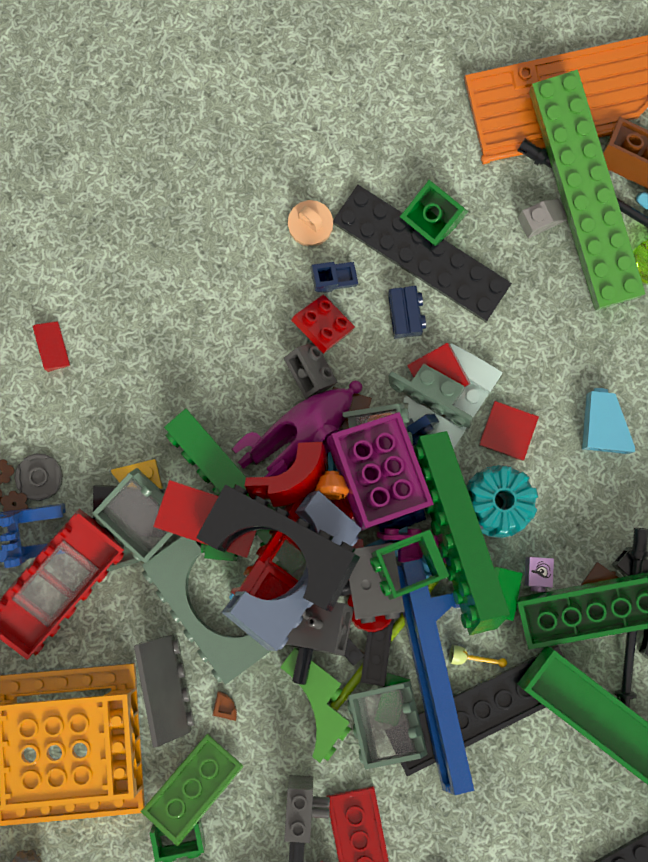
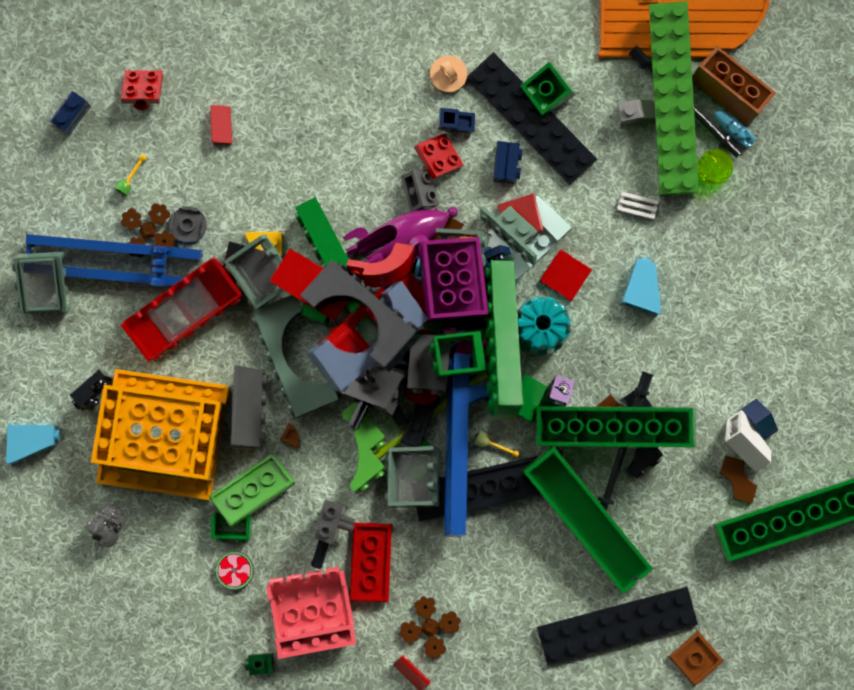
camera: 20 degrees right, 0 degrees up
(332, 486) = (414, 281): orange cone -> none
(565, 318) = (638, 198): none -> white tile

